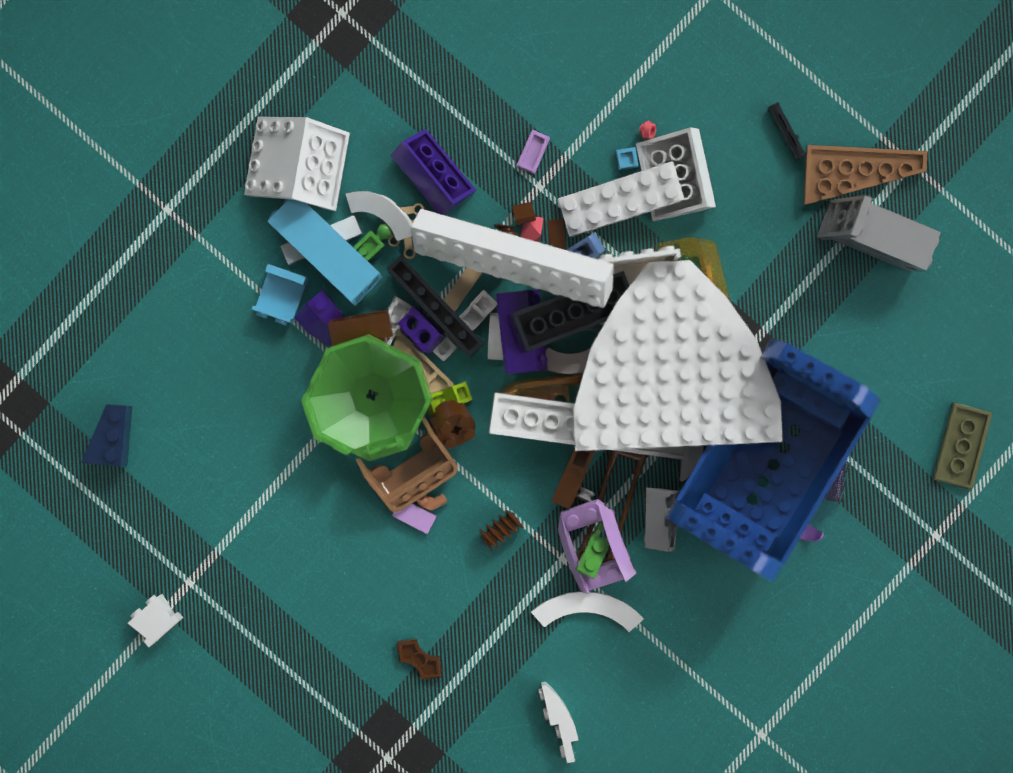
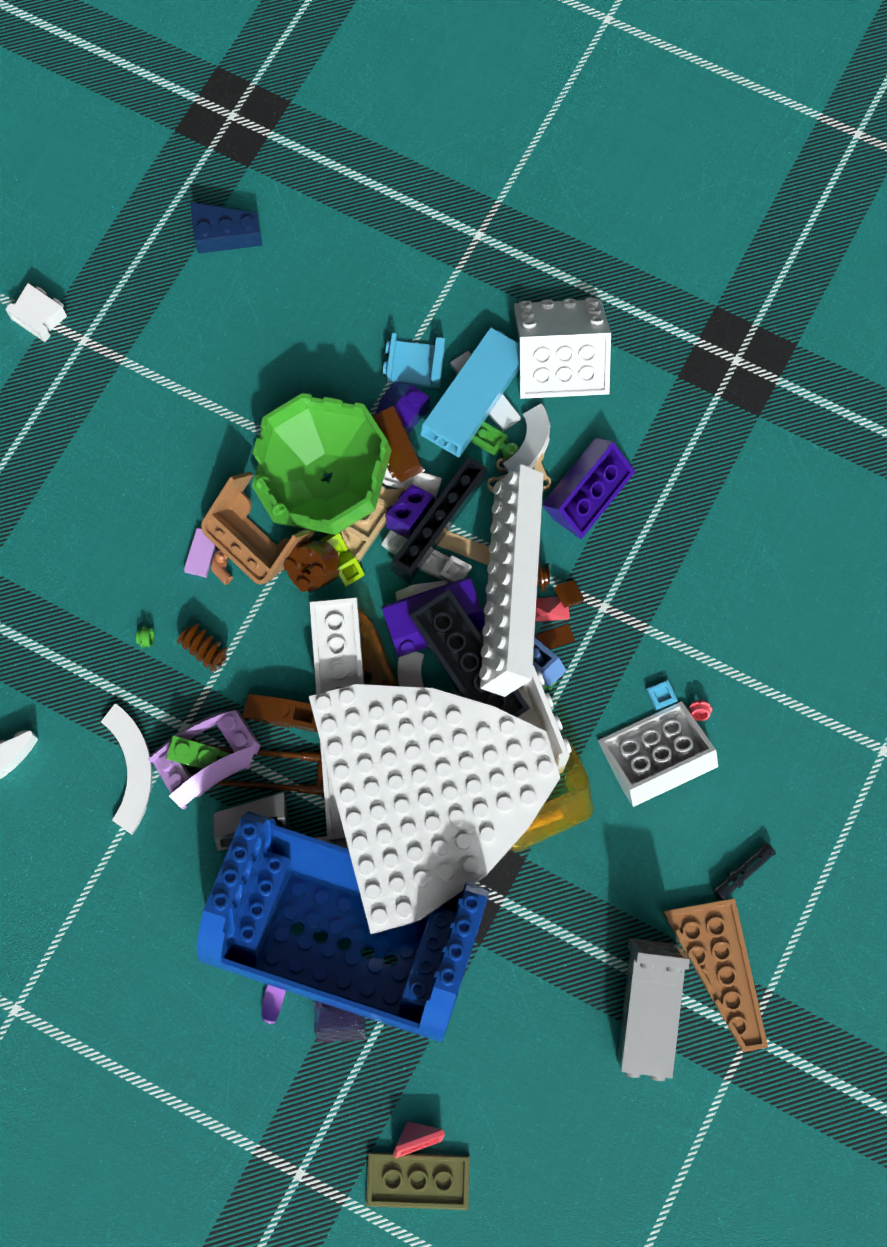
camera: 75 degrees right, 15 degrees down
(426, 664) = (35, 602): reddish brown tile -> none
(479, 577) = (145, 637): none -> bright green plate
(533, 152) = (641, 590): lavender tile -> none
(584, 494) = (263, 732): light grey bush -> none
(621, 199) = (613, 696): white plate -> none
(931, 440) = (417, 1137): none -> coral slope

